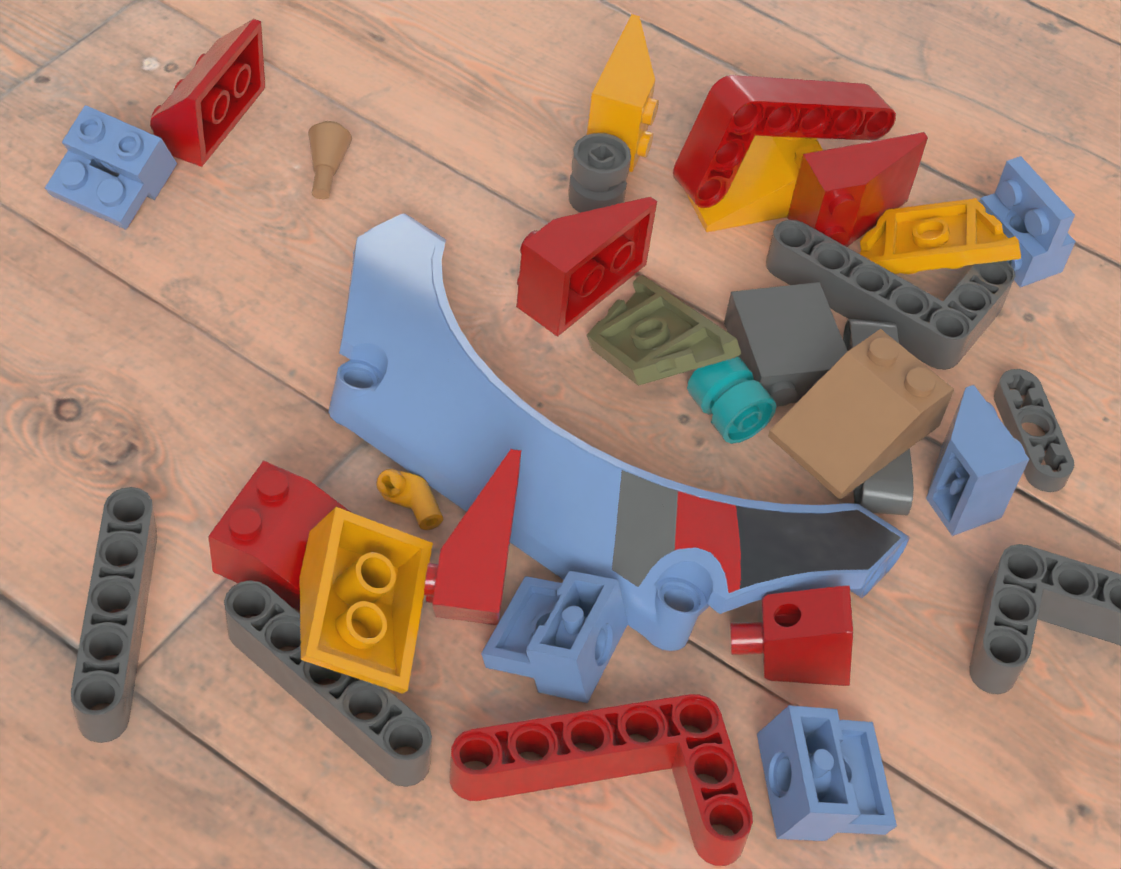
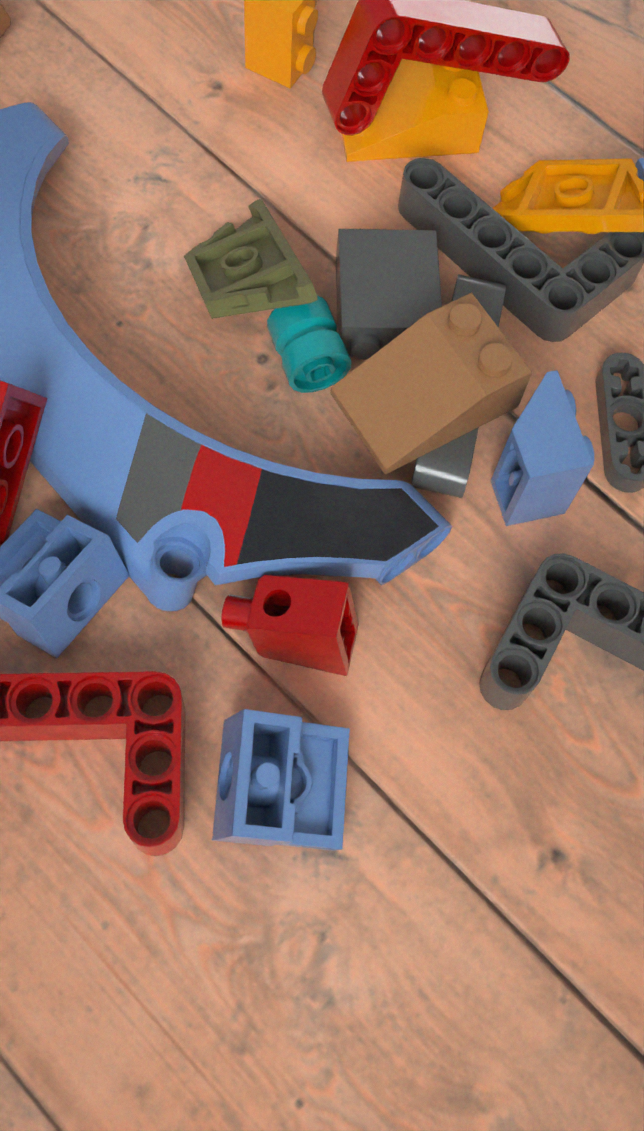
camera: 10 degrees right, 15 degrees up
(582, 261) = (195, 174): red slope -> none
(598, 172) = (244, 85): dark grey wheel -> none
(853, 185) = (505, 127): red slope -> none

